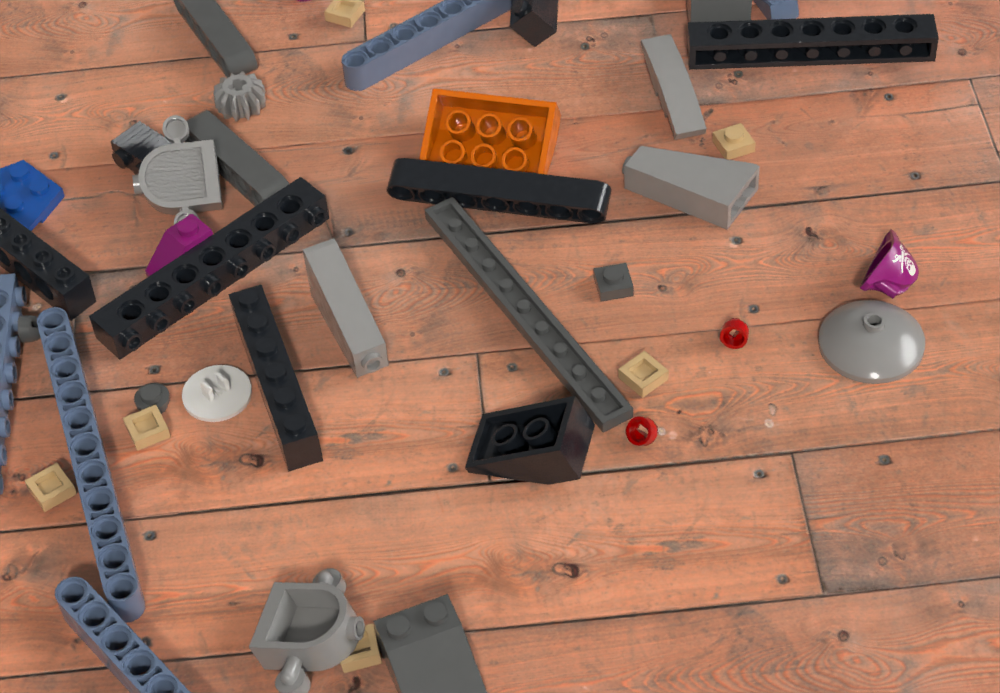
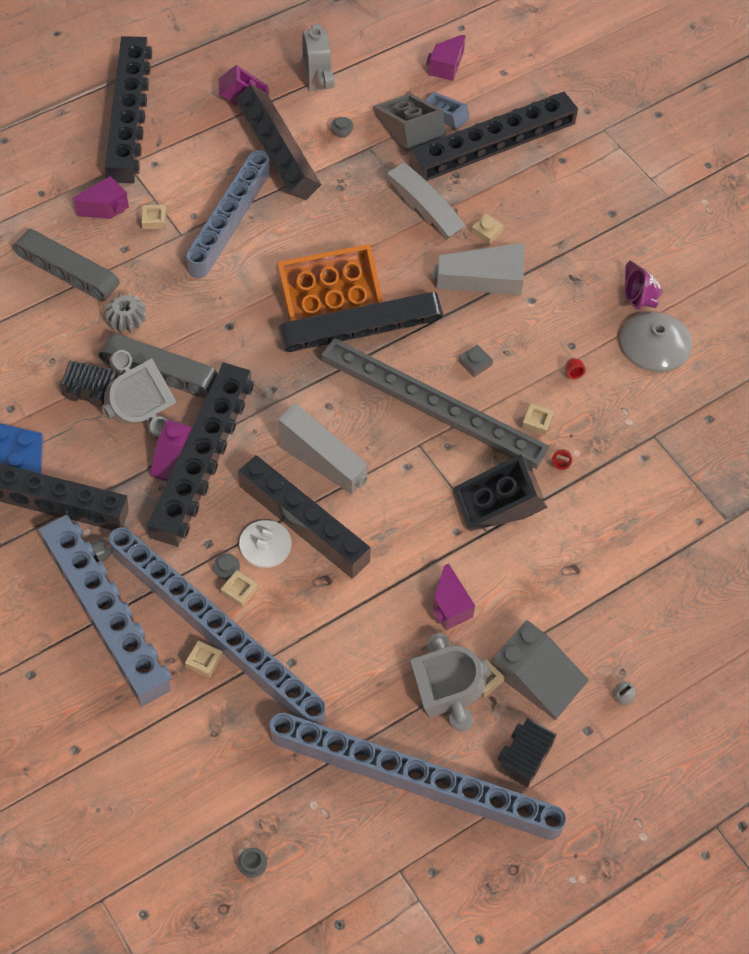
camera: 35 degrees left, 10 degrees up
(379, 539) = (451, 600): none -> magenta slope

